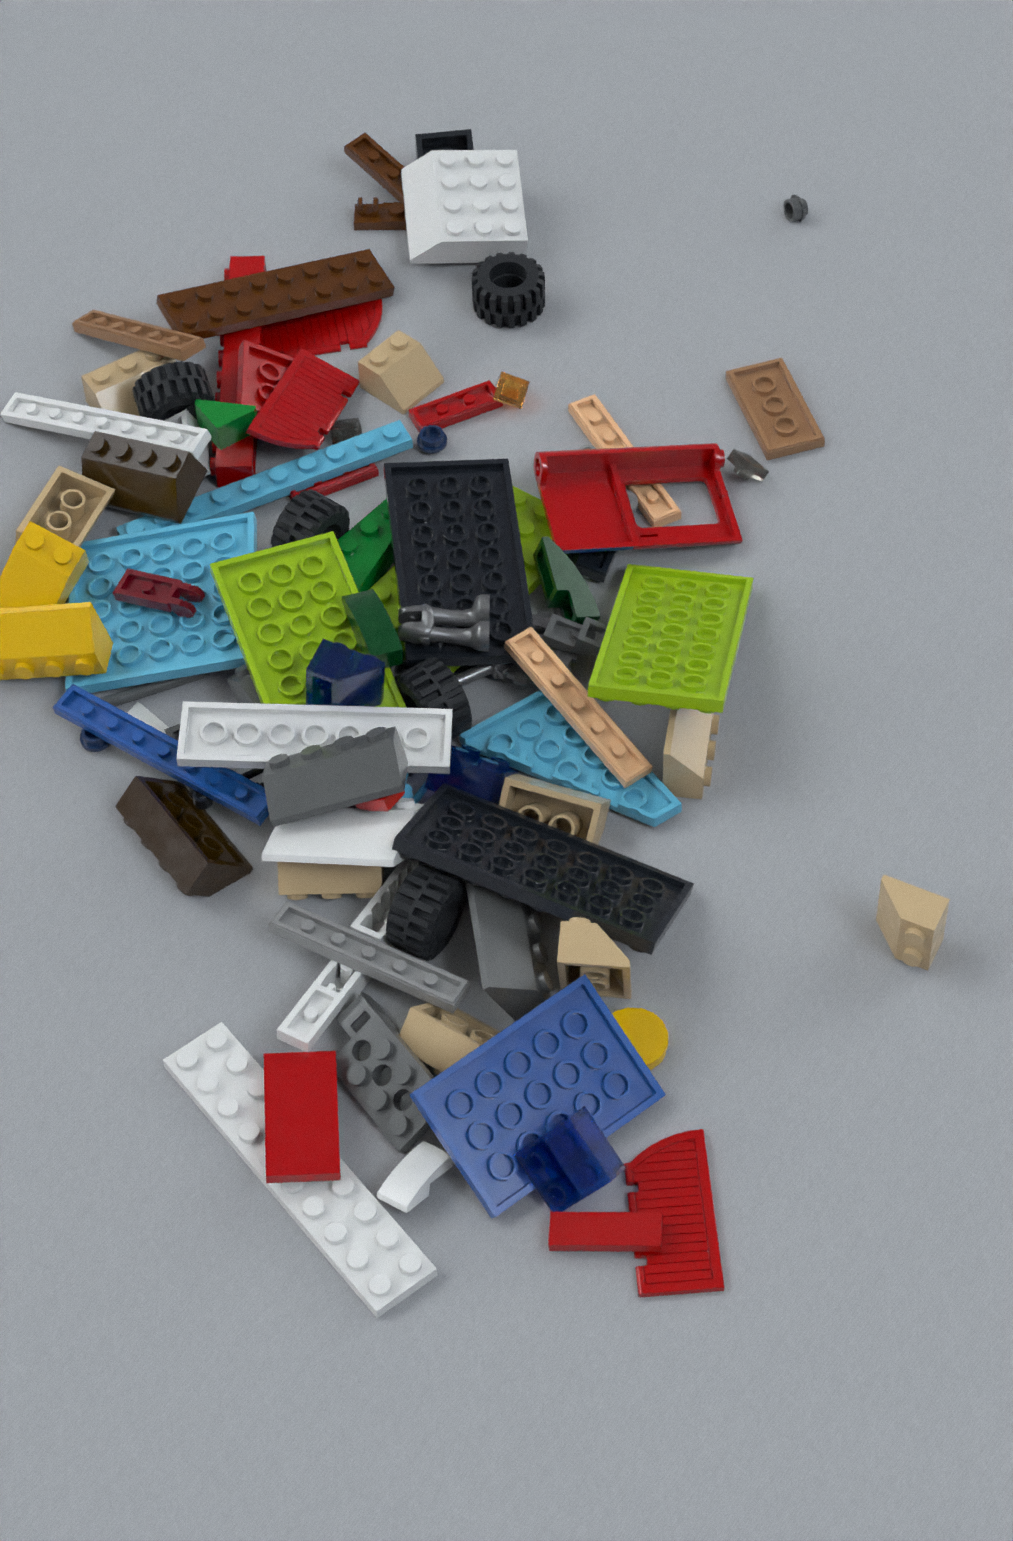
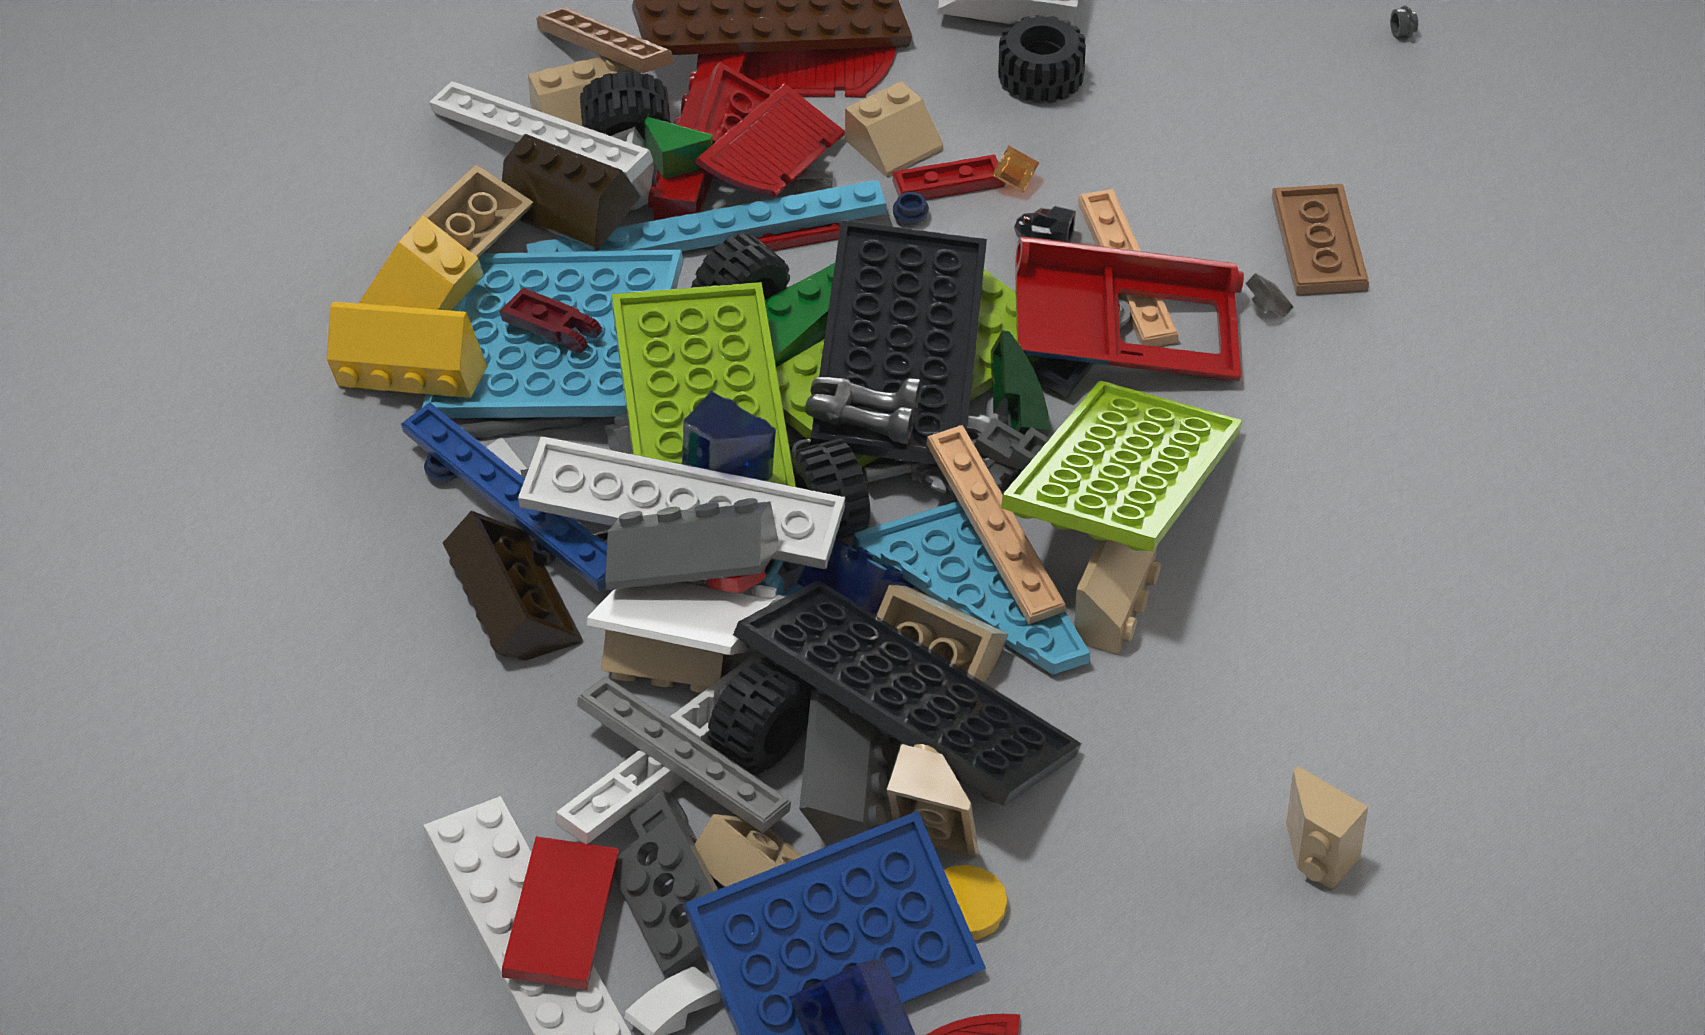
camera: 10 degrees right, 5 degrees down
(373, 627) = (778, 394): dark green slope -> none
(548, 436) = (1047, 224): none -> black rock

